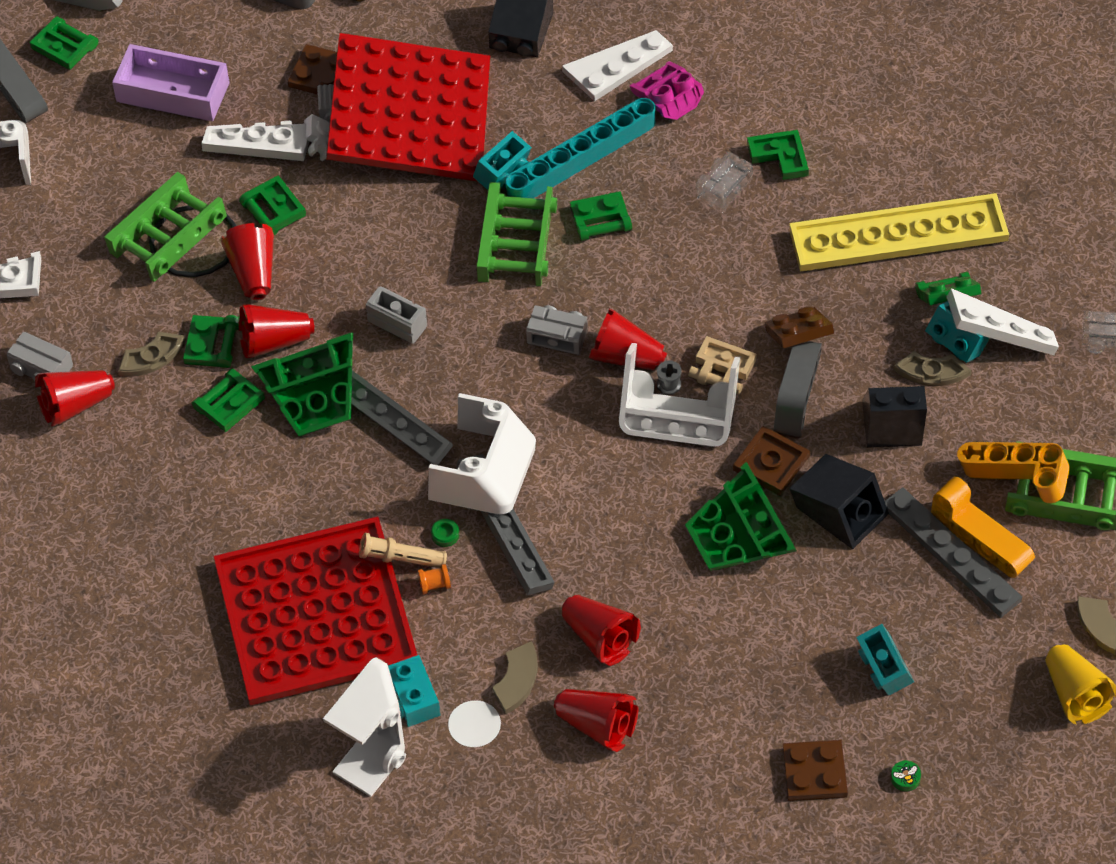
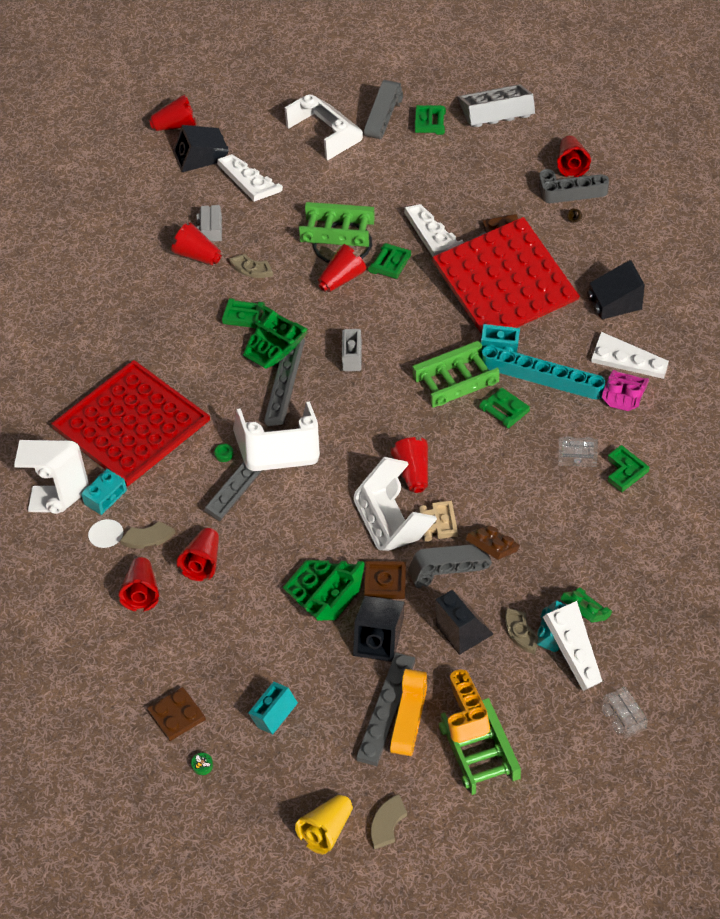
camera: 60 degrees right, 5 degrees down
(152, 83) = (430, 162): lavender piece -> none
(203, 339) = (278, 285): green plate -> none
(271, 329) = (299, 302): red cone -> none
(389, 550) = (185, 430): tan pin -> none
(434, 579) = (185, 462): orange bush -> none
(557, 329) = (400, 424): light grey brick -> none
(668, 377) = (410, 494): dark grey bush -> none
(898, 232) = (615, 560): light yellow plate -> none

